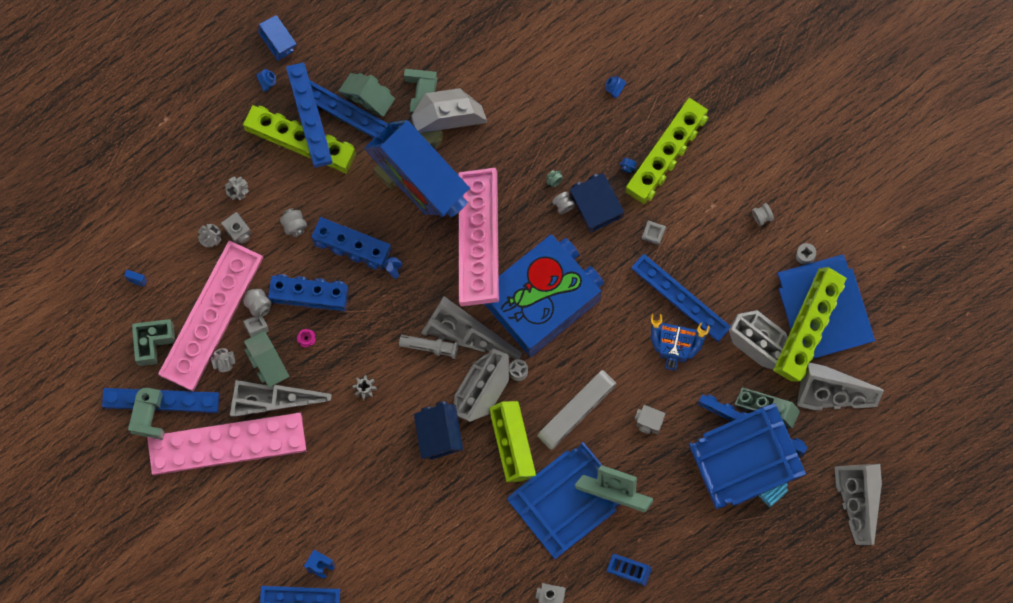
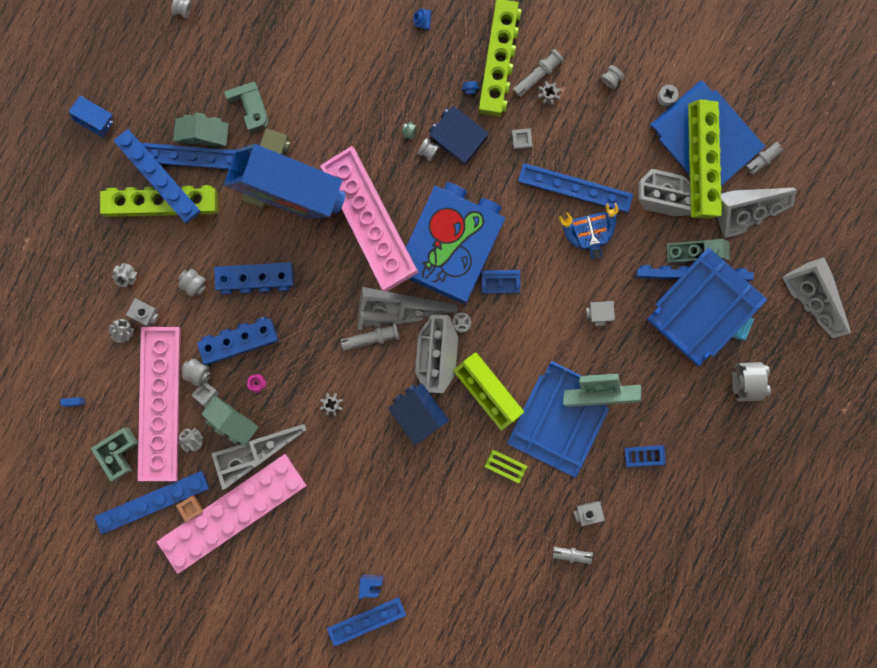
camera: 25 degrees left, 10 degrees up
(143, 414) = (142, 524): sand green piece -> none
(191, 420) = (189, 508): none -> nougat plate
(266, 79) = (101, 160): blue plate -> none
(392, 265) = (301, 280): blue plate -> none
(446, 111) = (282, 113): light grey wedge -> none
(485, 505) = (491, 459): none -> lime tile
(571, 349) = (500, 281): none -> blue hinge
(576, 409) = (531, 334): light grey beam -> none
(696, 207) = (549, 87): none -> light grey gear
(704, 178) = (545, 67): none -> light grey pin
(757, 545) = (751, 381): none -> light grey brick
(869, 351) = (764, 158): none -> light grey pin

